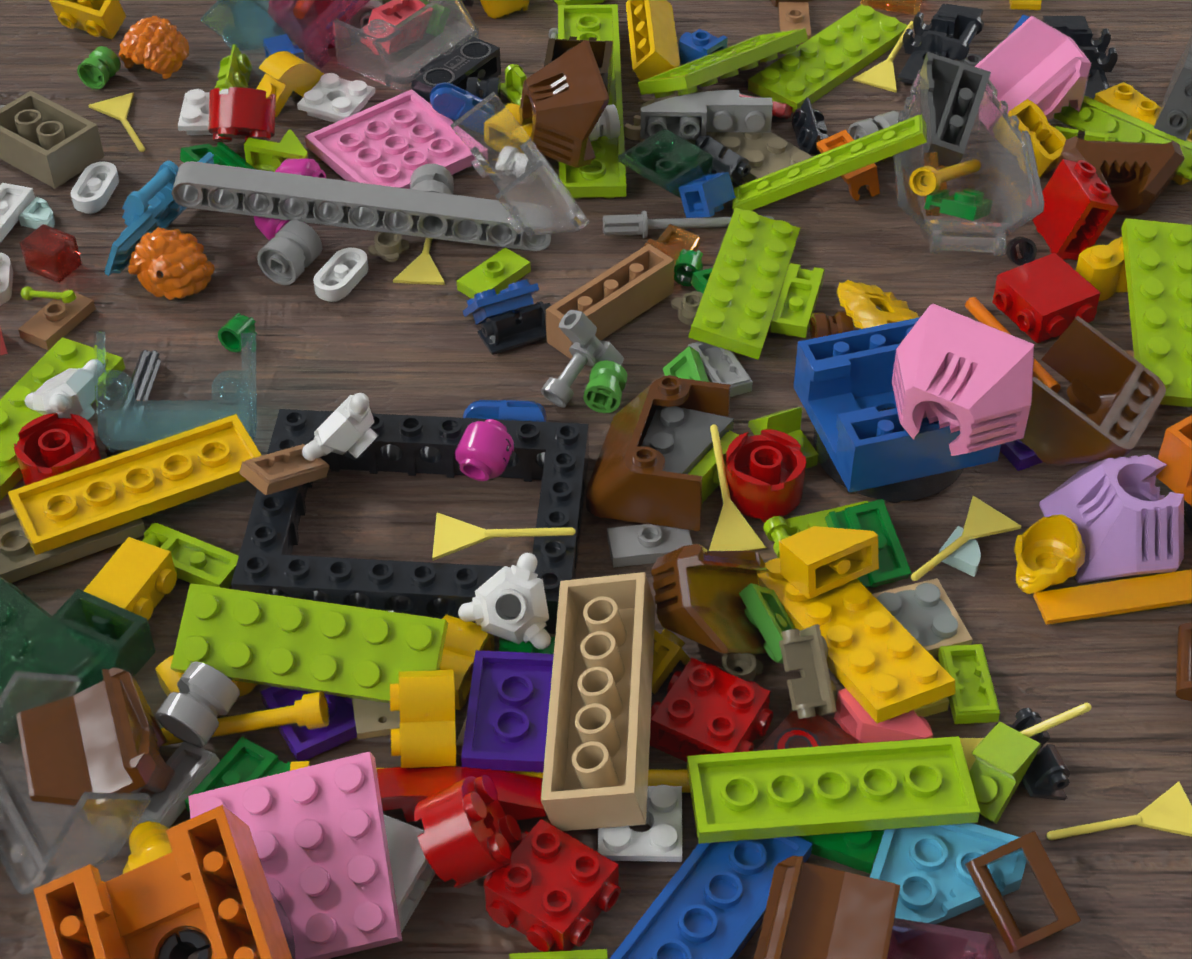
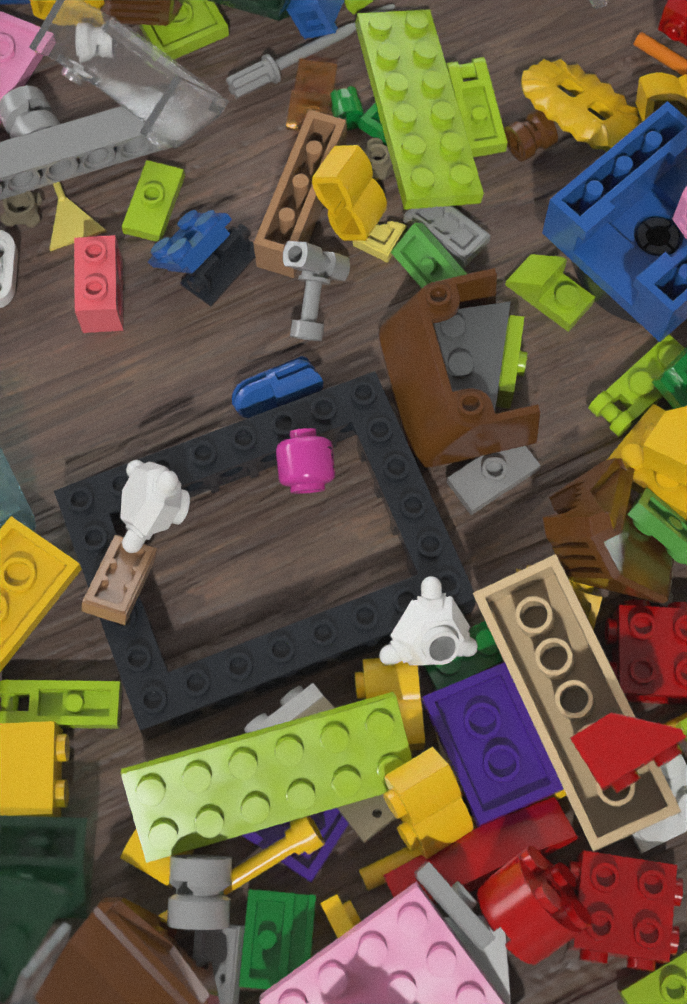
camera: 25 degrees left, 25 degrees up
(398, 793) = (456, 903): none -> light grey plate
(411, 306) = (98, 284): none -> coral brick
(455, 535) = (330, 571): light yellow piece -> none
(605, 386) = (351, 302): bright green wheel -> none
(610, 717) = (622, 745): none -> red slope
(647, 308) = (349, 192): none -> yellow brick
(656, 359) = (382, 240): none -> light yellow tile
(732, 529) = (562, 424): light yellow piece -> none
(765, 474) = (567, 350): red brick -> none

